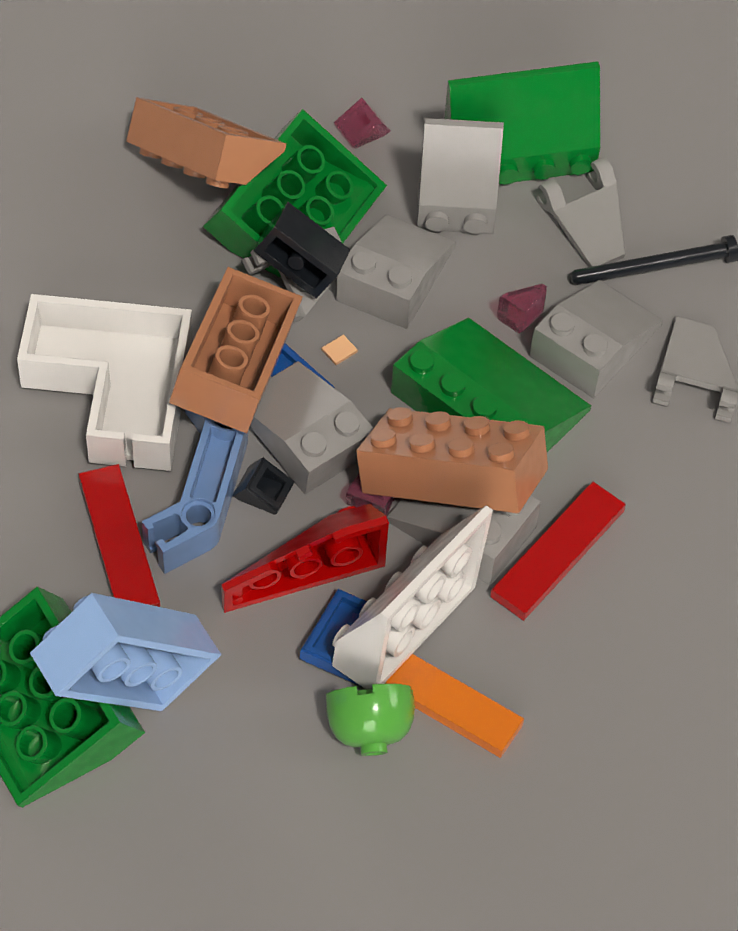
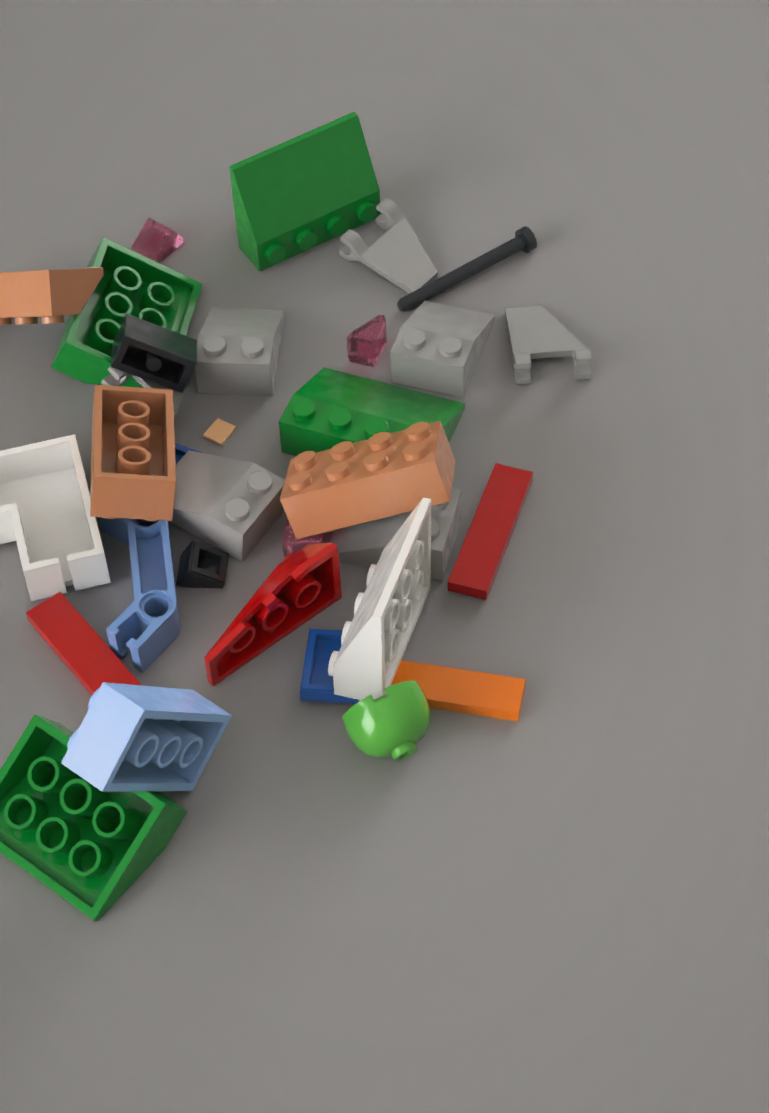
camera: 15 degrees left, 5 degrees down
(459, 175) = (268, 248): light grey slope -> none

